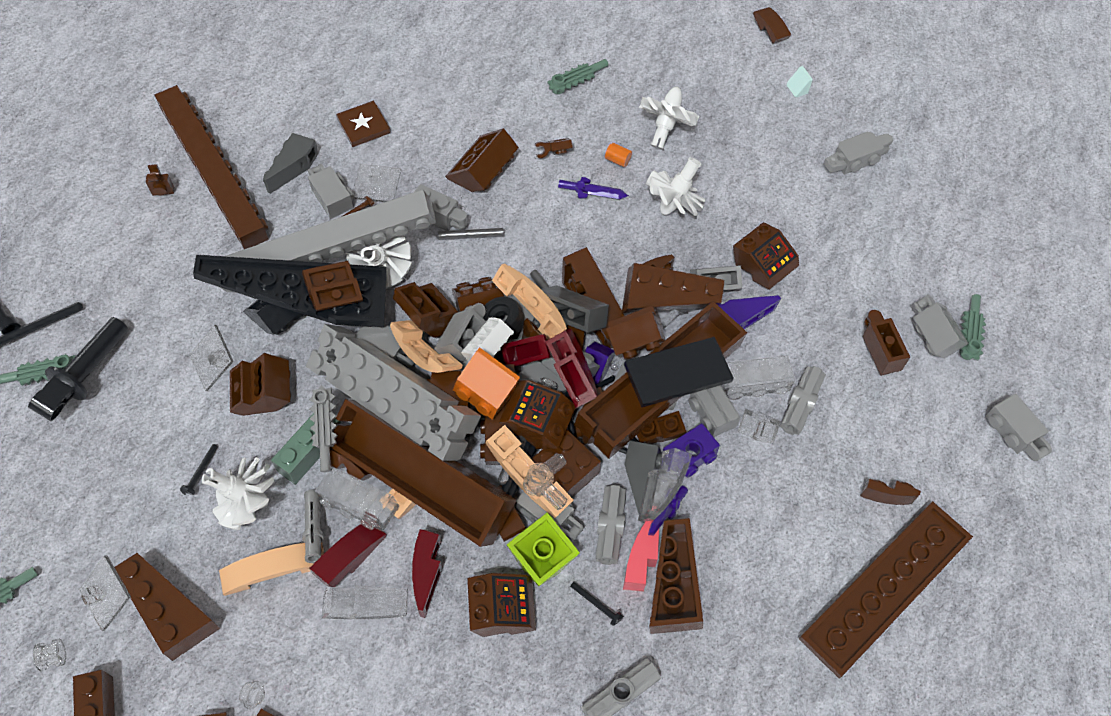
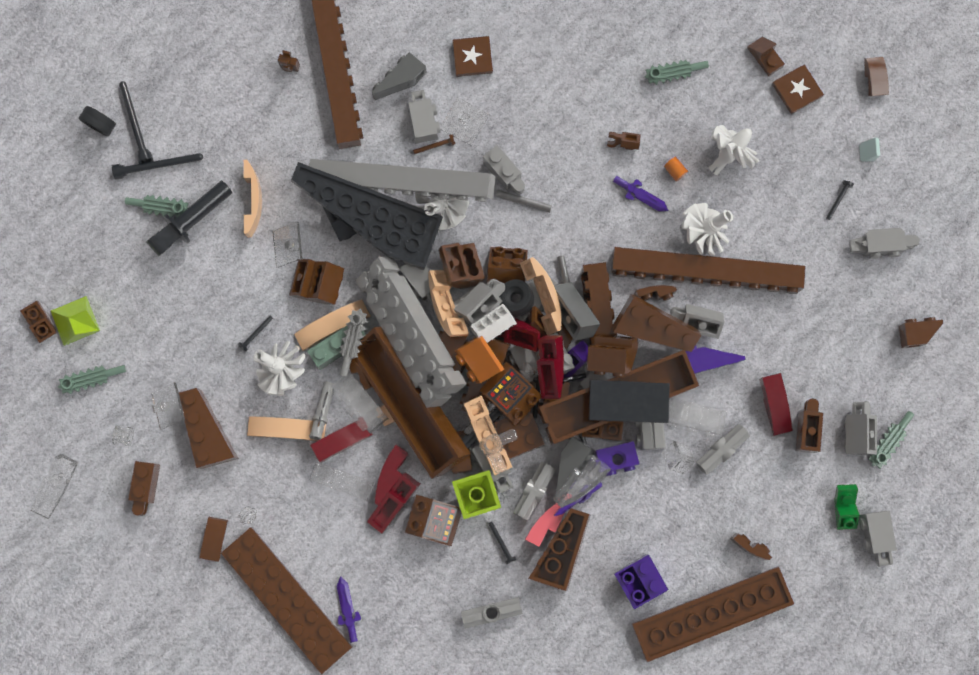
camera: 25 degrees right, 20 degrees up
(161, 346) = (252, 221): none -> light nougat slope
(282, 431) = (328, 325): none -> light nougat slope
(332, 285) = (394, 225): reddish brown slope -> none
(441, 605) = (393, 502): none -> dark red slope
(483, 161) = (559, 134): reddish brown slope -> none
(658, 39) = (765, 55): none -> reddish brown slope
(693, 231) = (708, 269): none -> reddish brown brick
(703, 57) = (797, 89): none -> reddish brown tile
(766, 255) = (753, 314): reddish brown piece -> none
(787, 577) = (641, 581): none -> dark purple slope
(794, 117) = (847, 184): none -> black piece
(835, 333) = (776, 404): none -> dark red slope
(937, 219) = (918, 333): none -> reddish brown slope
(970, 418) = (845, 507): none -> green slope

